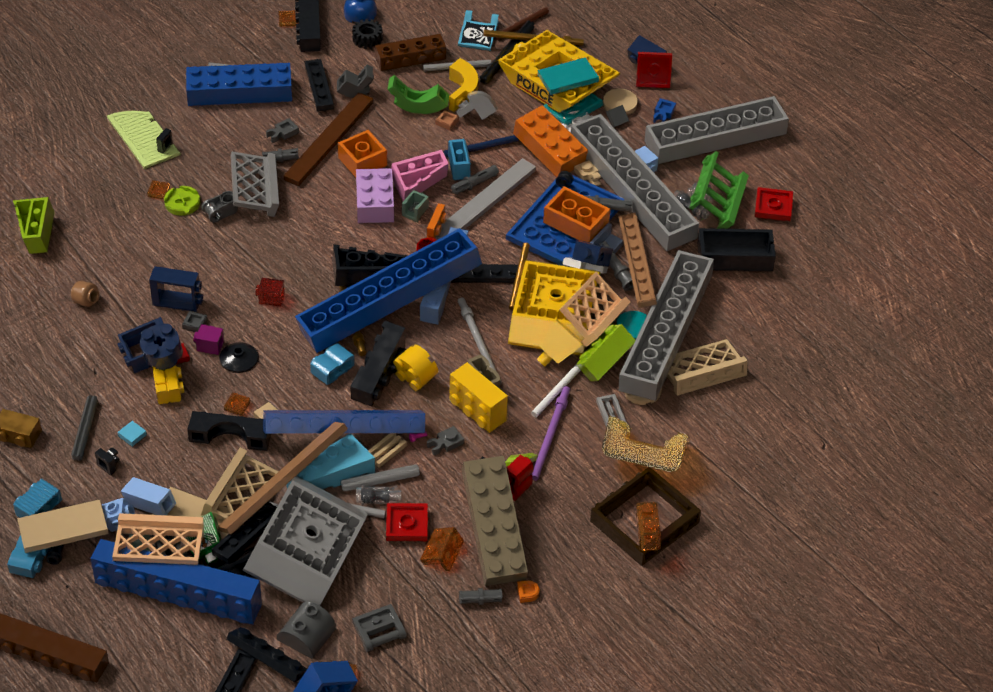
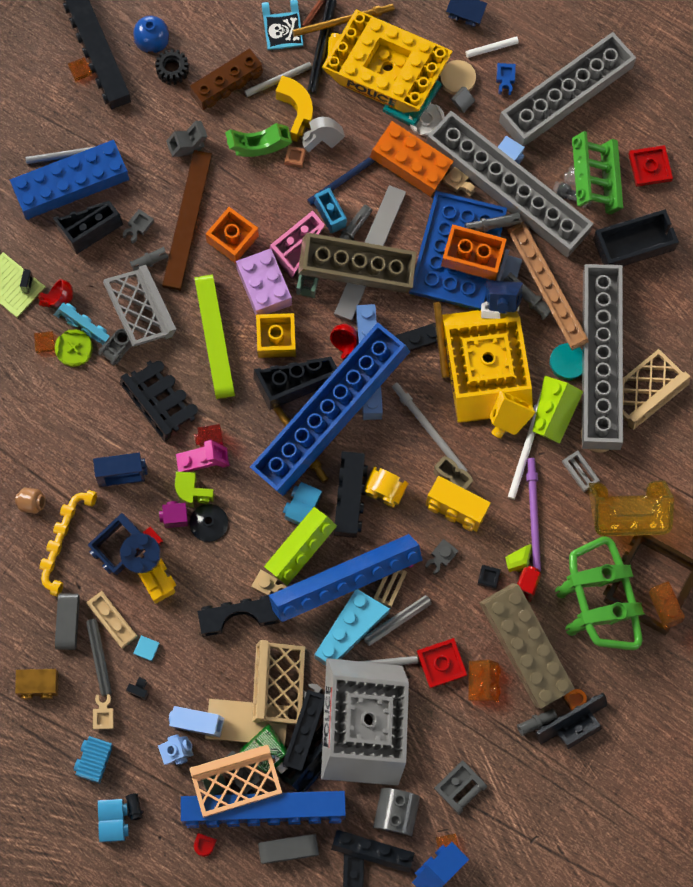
camera: 20 degrees left, 25 degrees up
(62, 526) = (134, 786): tan tile -> none
(65, 472) = (103, 717): none -> tan plate
(69, 391) = (67, 621): none -> dark grey beam
(73, 346) = (61, 530): none -> yellow bar
(106, 603) = (204, 845): none -> red tile
(111, 403) = (112, 619): none -> tan tile
(185, 627) = (288, 849): none -> dark grey beam
(189, 160) = (60, 293): none -> red piece
(193, 321) = (149, 495): dark grey tile -> none
(195, 178) = (75, 319): none -> medium azure wing
(228, 256) = (154, 413): none -> black fence
(233, 325) = (187, 492): none -> lime brick
(237, 404) = (230, 580): clear orange tile -> none
(239, 118) = (88, 226): none -> black wedge
(262, 301) = (203, 457): none -> dark pink bracket
(282, 478) = (317, 666): medium nougat tile -> none
(311, 223) = (214, 336): none -> lime beam
(314, 387) = (300, 546): none -> lime brick
(318, 85) = (150, 152): black plate -> none
(367, 231) = (275, 335): none -> yellow brick
(370, 495) = (396, 645): clear piece -> none
(435, 225) = (340, 309): orange plate -> none
(465, 195) = (357, 263): none -> dark tan brick
(517, 606) = (576, 724): none -> black bracket
(568, 76) = (405, 75): teal tile -> none
(568, 179) = (443, 206): black bush -> none
(581, 510) = (604, 615): none -> bright green piece
(603, 318) = (543, 370): light nougat fence -> none
(654, 69) = (481, 29): red plate -> none
(660, 89) = (491, 47): none -> white bar

